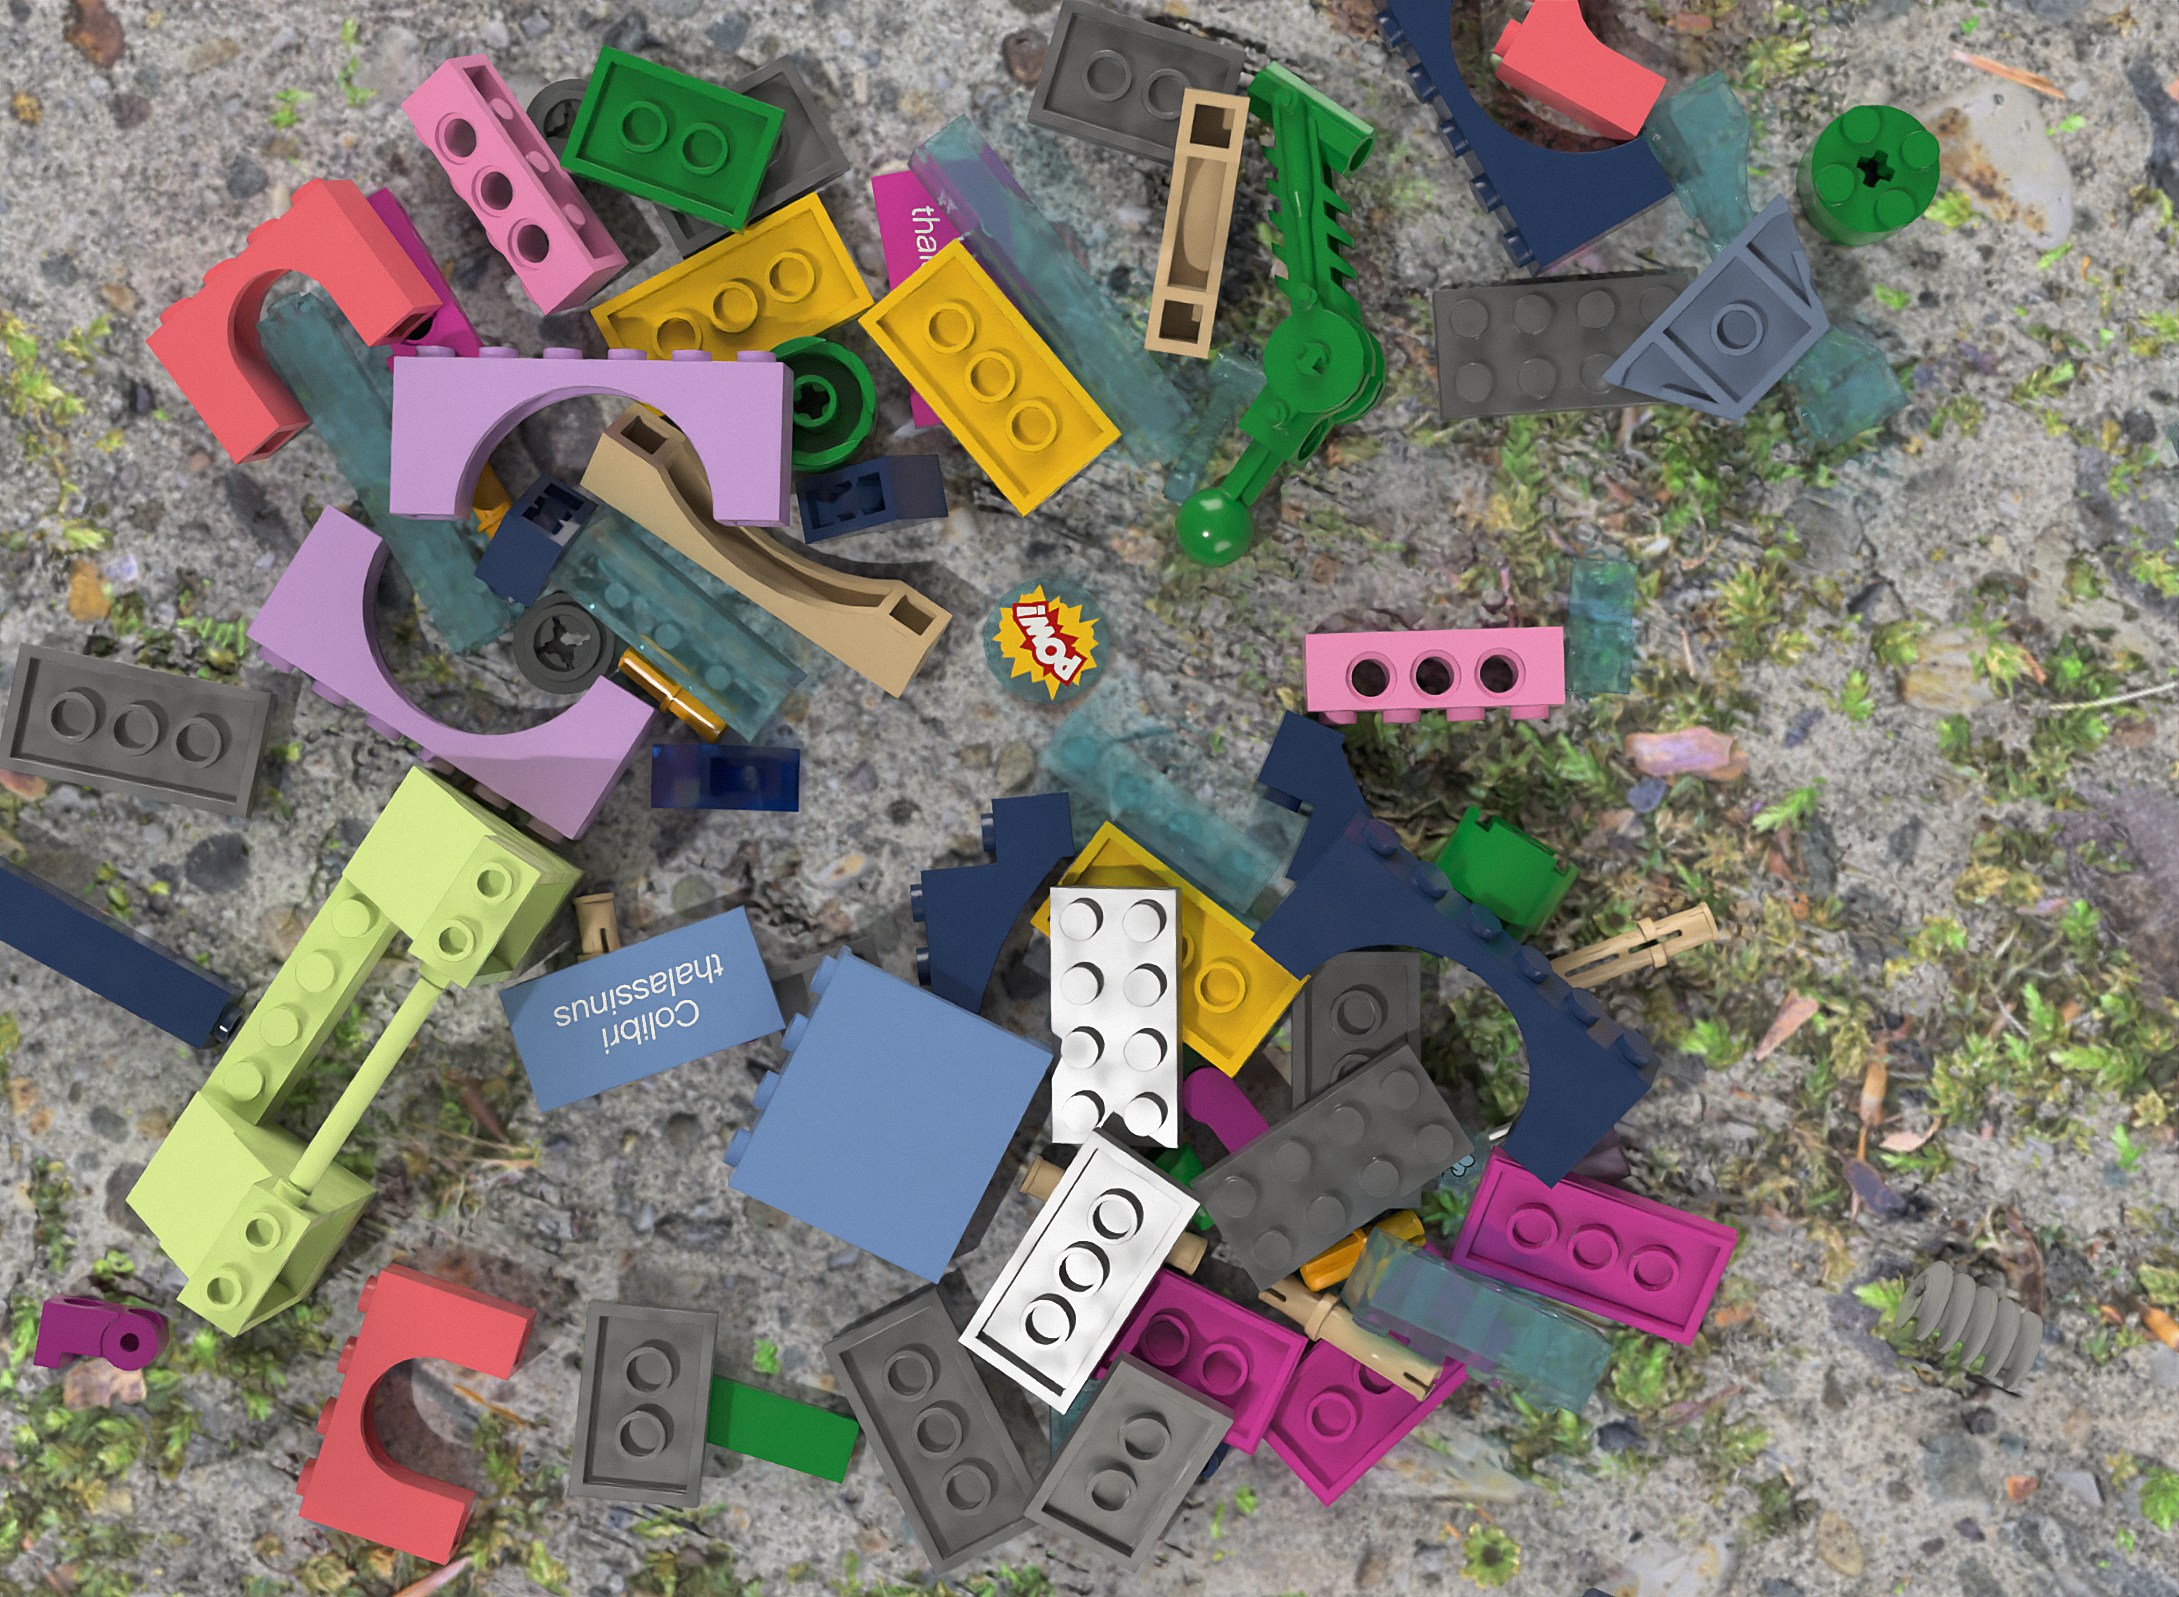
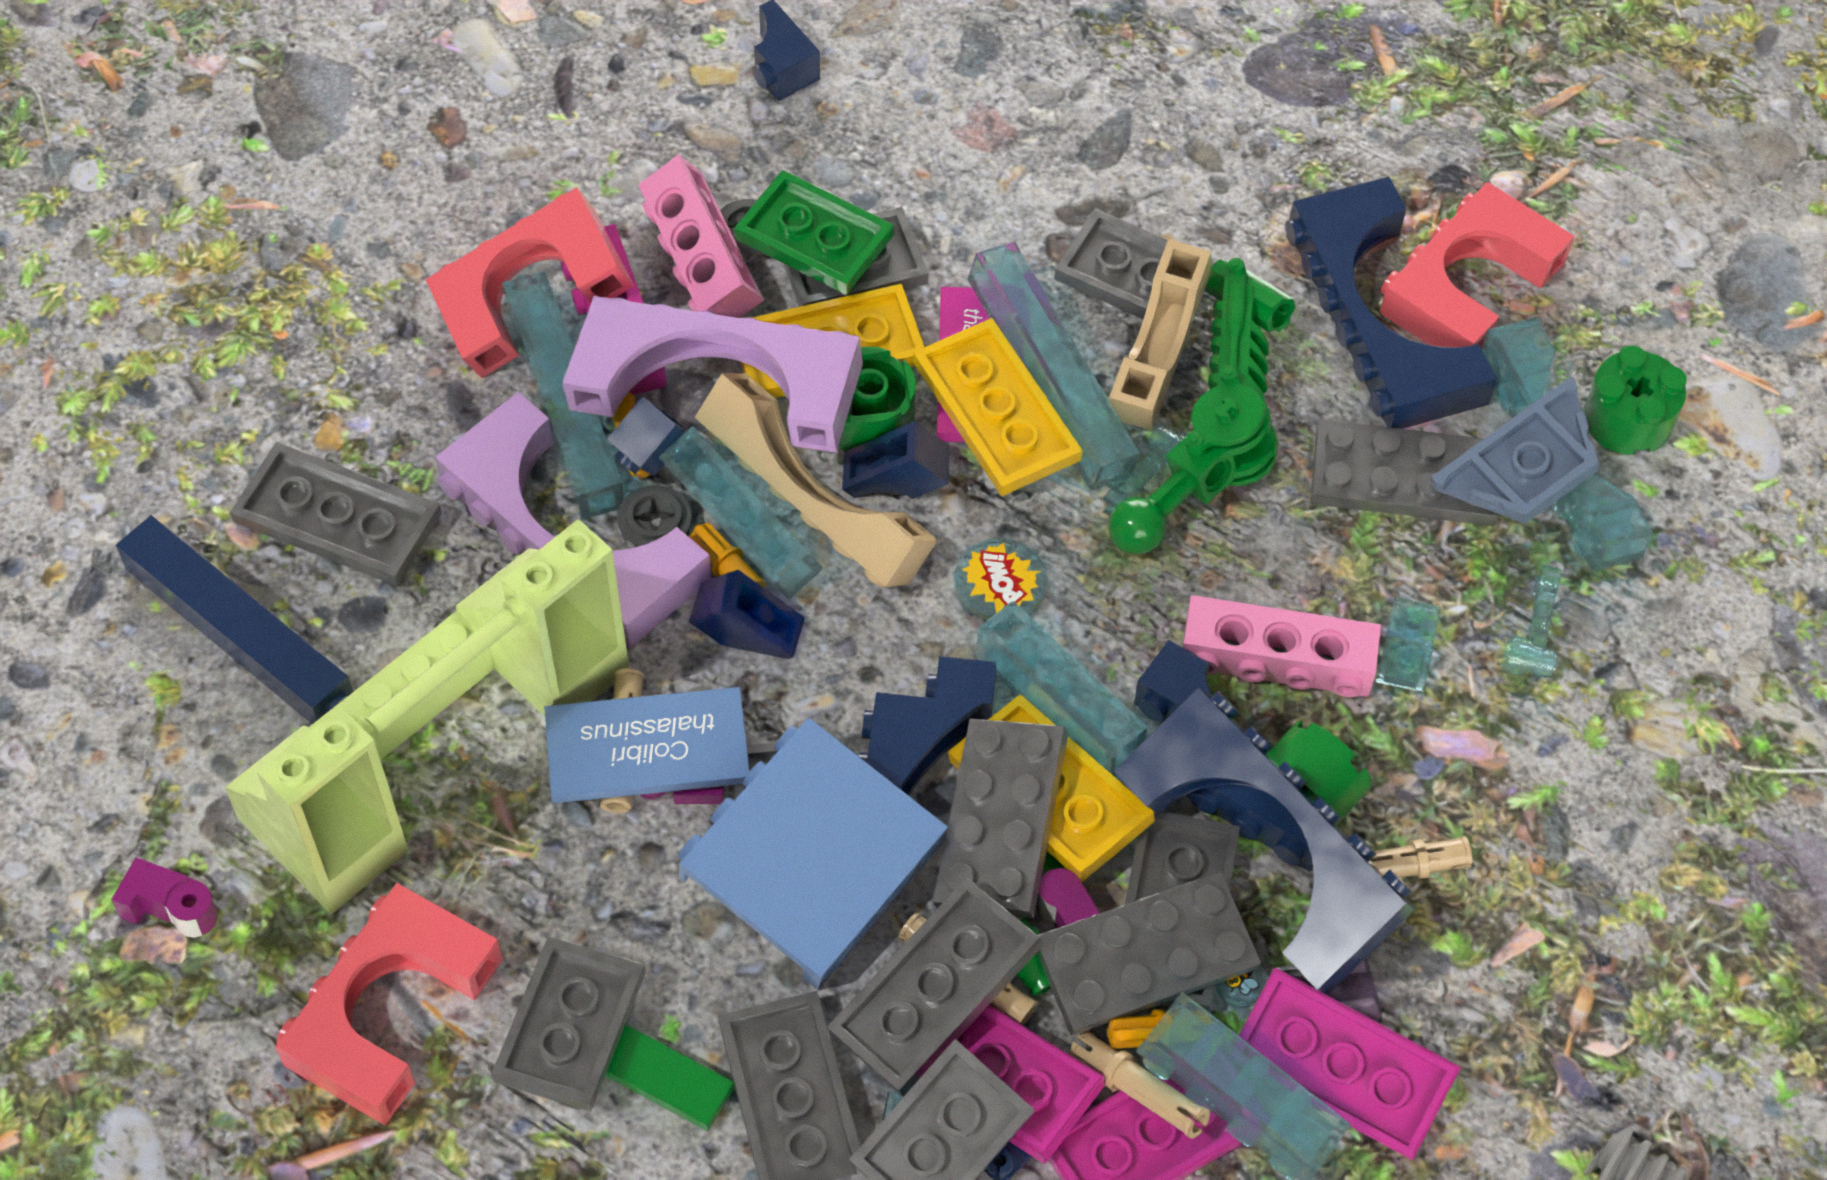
camera: 15 degrees right, 30 degrees down
(1765, 608) = (1531, 653): none -> clear light blue brick

